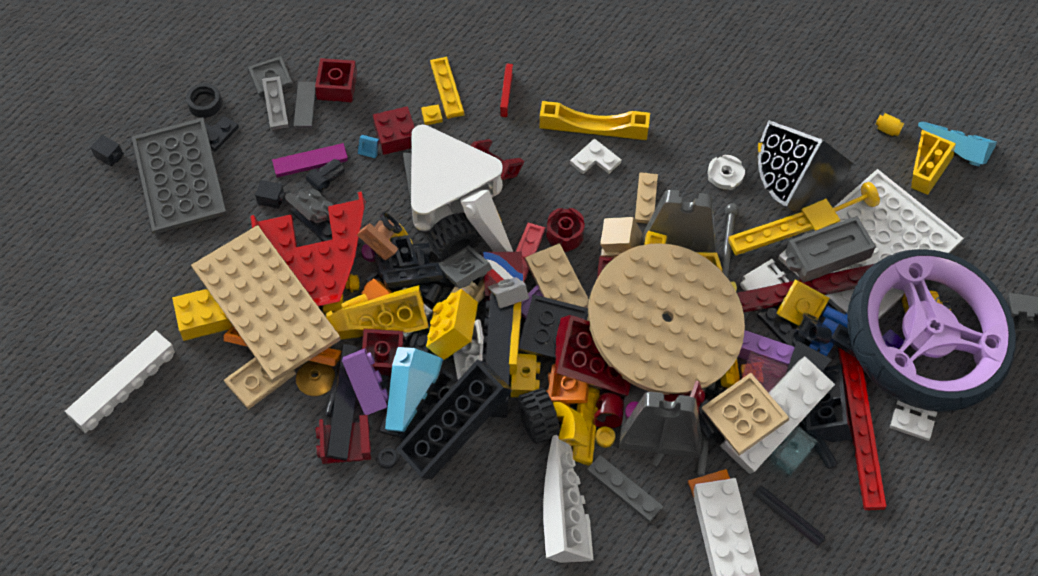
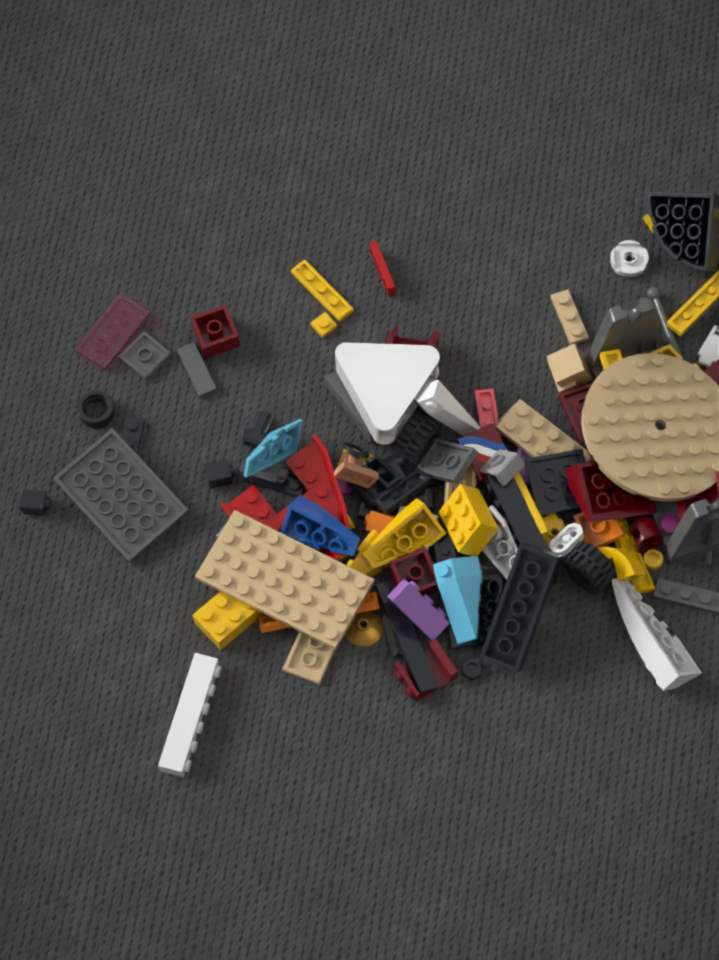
camera: 20 degrees left, 5 degrees up
(255, 46) = (112, 331): none -> clear pink plate
(275, 103) = (168, 381): light grey plate -> none
(309, 160) = (234, 423): magenta tile -> none
(315, 268) = (317, 528): none -> blue wedge
(321, 191) = (274, 448): none -> medium azure wedge
(368, 146) = (283, 384): dark azure plate -> none
(394, 130) = (300, 356): dark red brick -> none
(530, 381) = (564, 542): none -> white plate
(566, 228) = (514, 381): dark red brick -> none
(595, 153) = (501, 294): white plate -> none
(626, 125) = (452, 273): yellow arch -> none

